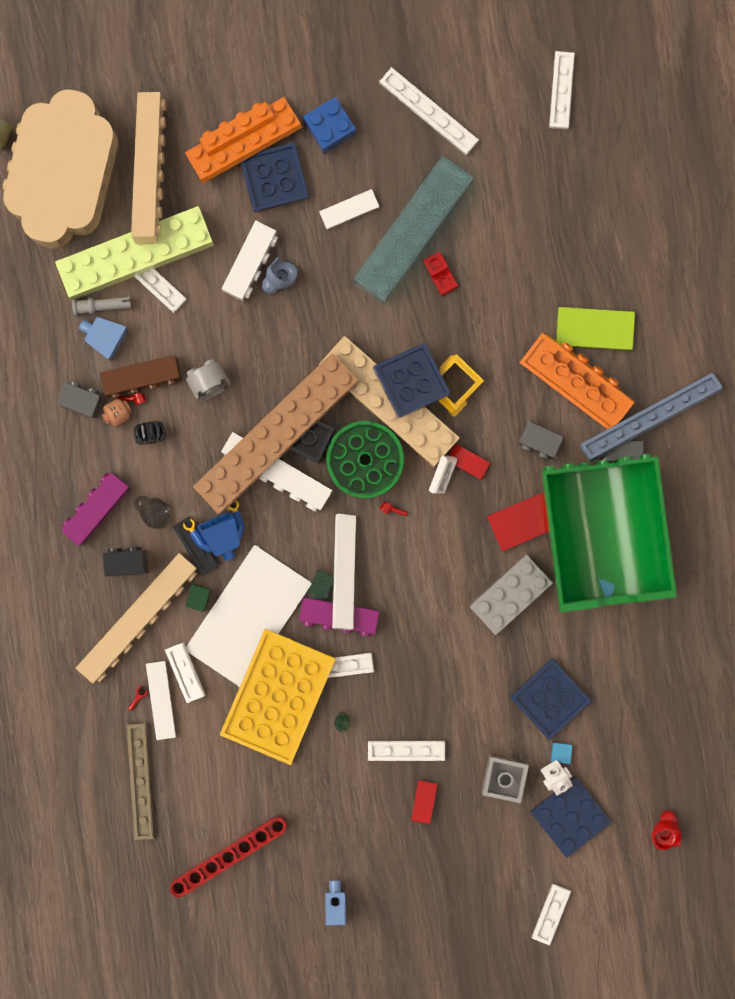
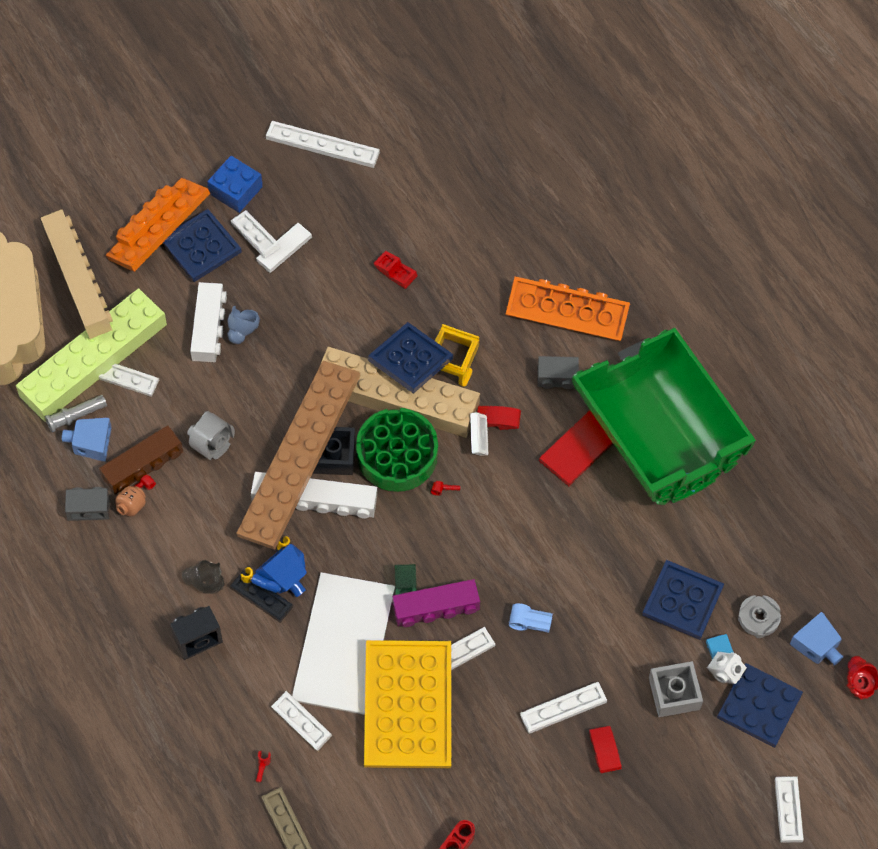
camera: 25 degrees left, 25 degrees down
(95, 509) = (144, 598): magenta brick -> none
(136, 618) = (229, 686): tan brick -> none
(149, 433) = (171, 504): black gear -> none
(161, 700) = (287, 759): white tile -> none
(198, 598) = (285, 639): dark green panel -> none
(328, 185) = (255, 234): none -> white tile
(342, 722) = (485, 703): clear green plate -> none
(344, 572) = (423, 556): white tile -> none
(409, 661) = (524, 617): none -> light blue piece
(413, 230) = (352, 241): clear light blue brick -> none
(510, 594) = (596, 517): light grey brick -> none
(561, 90) = (436, 87): white tile -> none
(595, 328) = (563, 261): lime tile -> none
(613, 730) = (755, 626): none -> light grey plate
(647, 784) = (818, 640): none -> medium blue torso
(651, 417) = (652, 312): sand blue plate -> none

